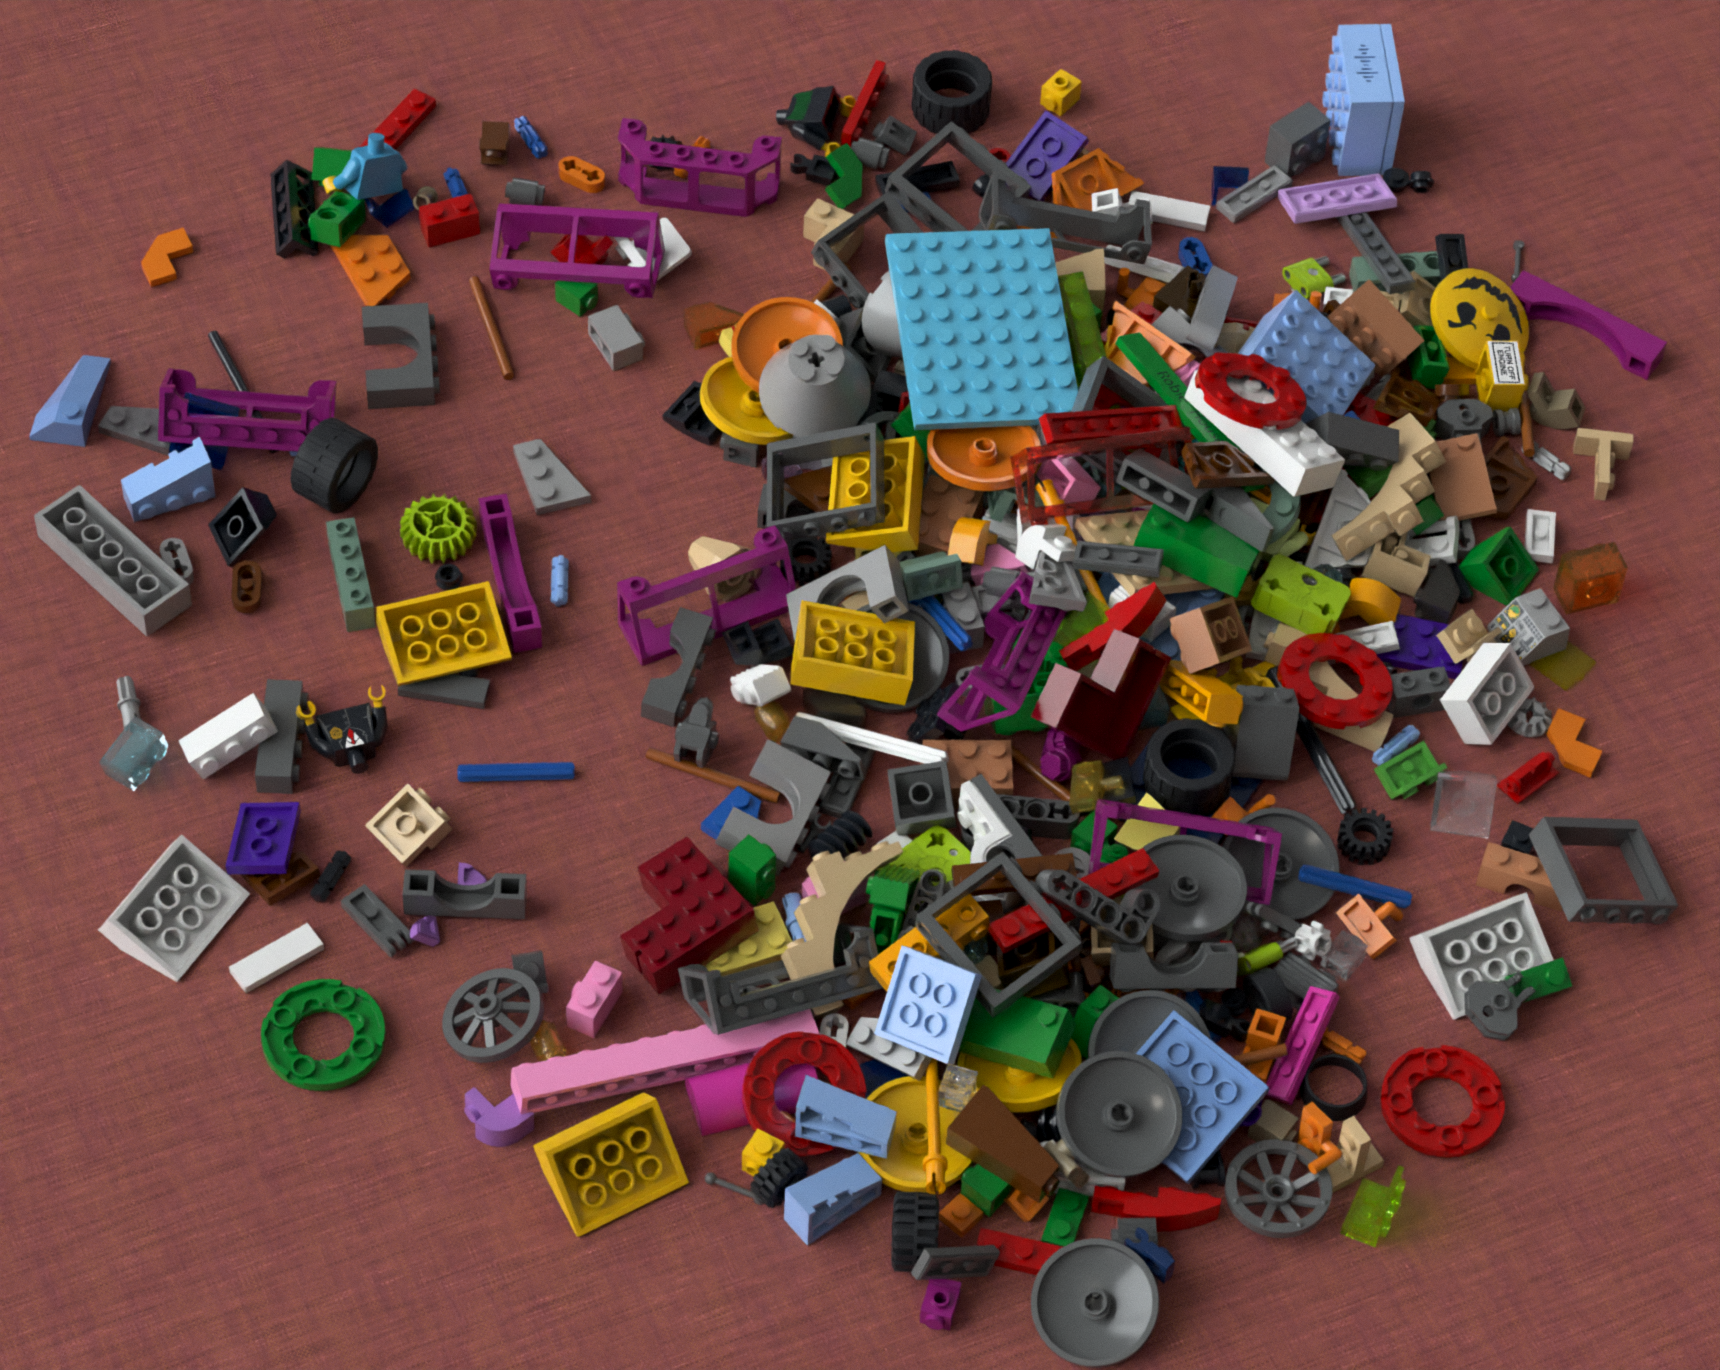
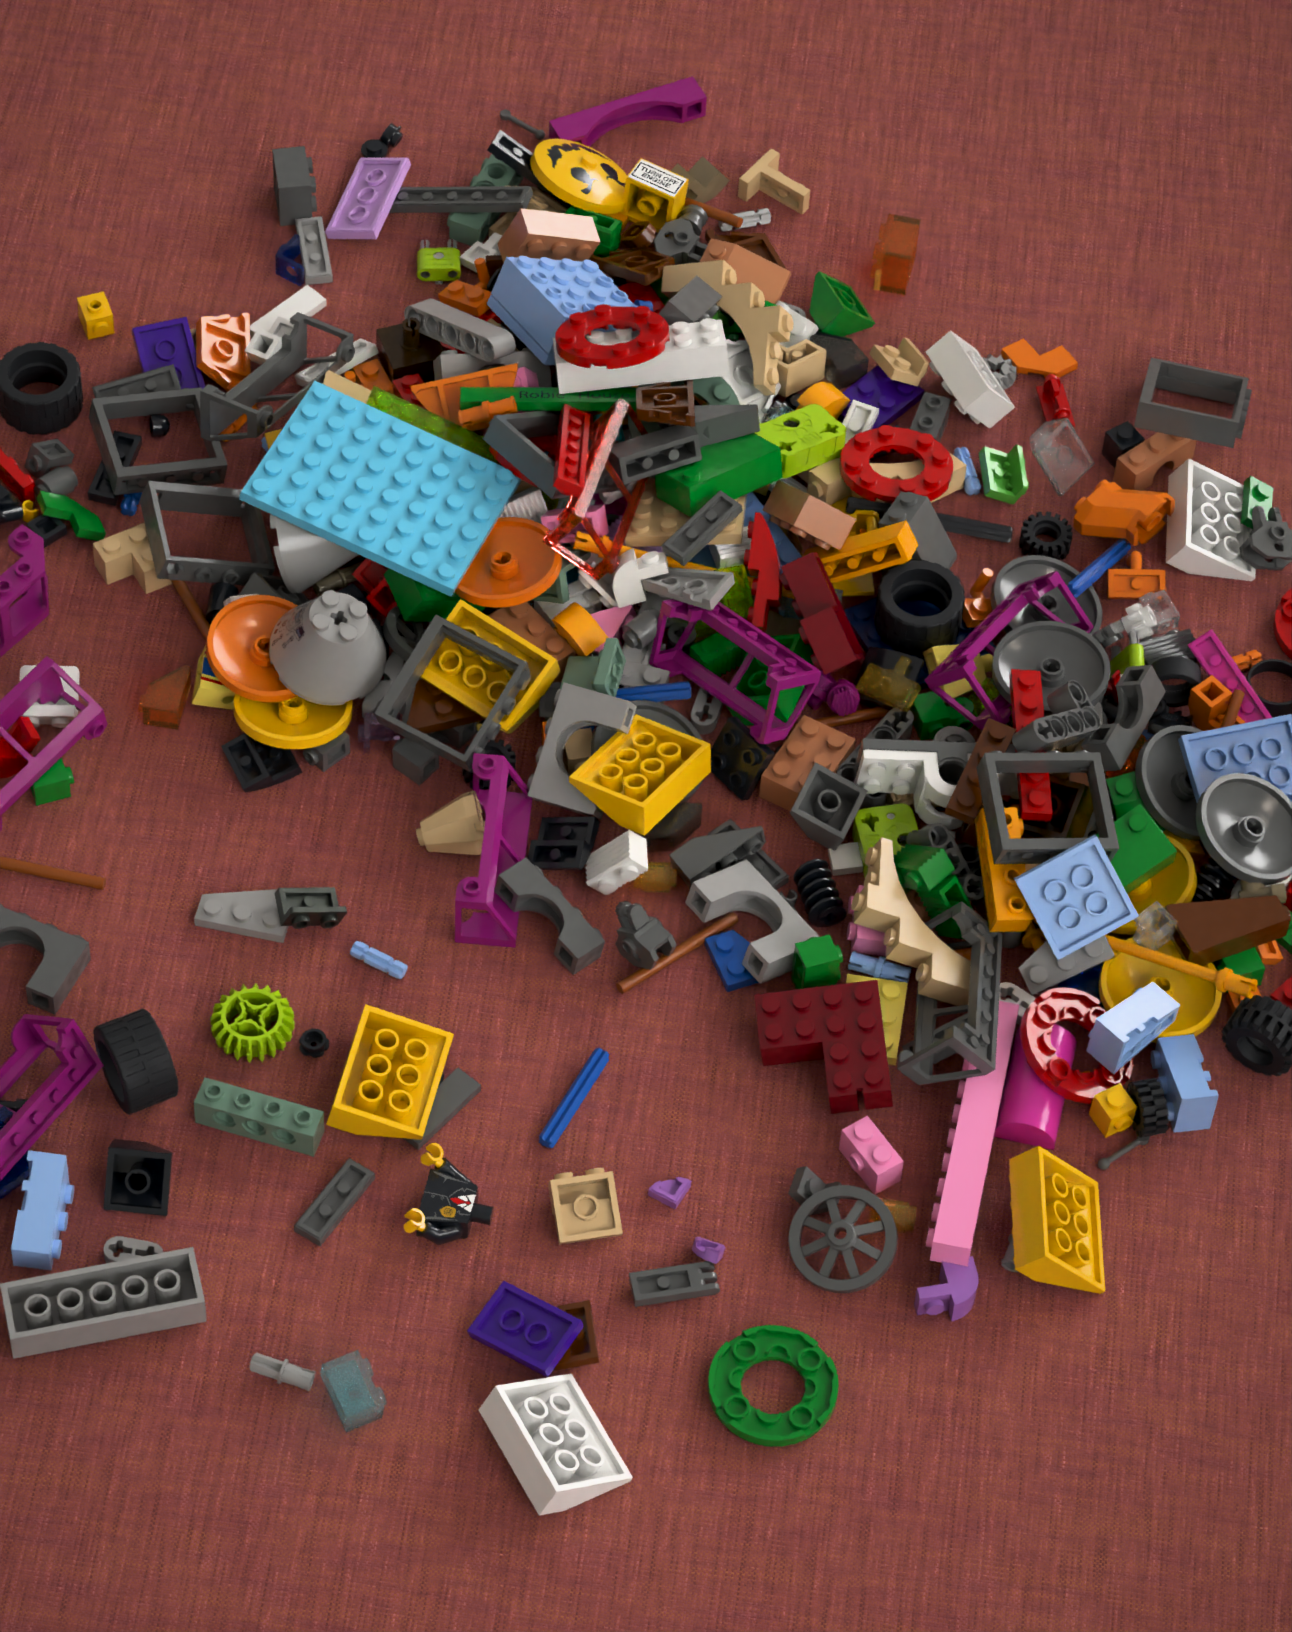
camera: 60 degrees left, 0 degrees up
(228, 736) = (394, 1299): white brick -> none
(246, 589) = (210, 1210): reddish brown plate -> none
(276, 958) = (659, 1385): white tile -> none
(278, 754) = (410, 1262): dark grey brick -> none
(310, 664) = (334, 1202): none -> dark grey tile
(330, 876) = (597, 1298): black axle -> none
(432, 895) = (682, 1220): dark grey arch -> none
(509, 575) = (306, 980): magenta arch -> none
(571, 508) = (309, 907): none -> pearl dark grey bracket
(616, 337) = (127, 778): light grey brick -> none
(881, 742) = (741, 807): white axle -> none
(1015, 157) = (151, 381): none -> dark grey tile
(1124, 359) = (486, 411): none -> orange pin
(1200, 258) = (358, 325): blue beam -> none
(1363, 99) = (298, 103): light blue piece -> none
(1428, 874) = (1122, 513): none -> orange brick
(1531, 627) = (914, 317): light grey slope -> none
(1540, 535) = (813, 259): white plate -> none
(1564, 666) = (953, 317): clear neon green piece -> none

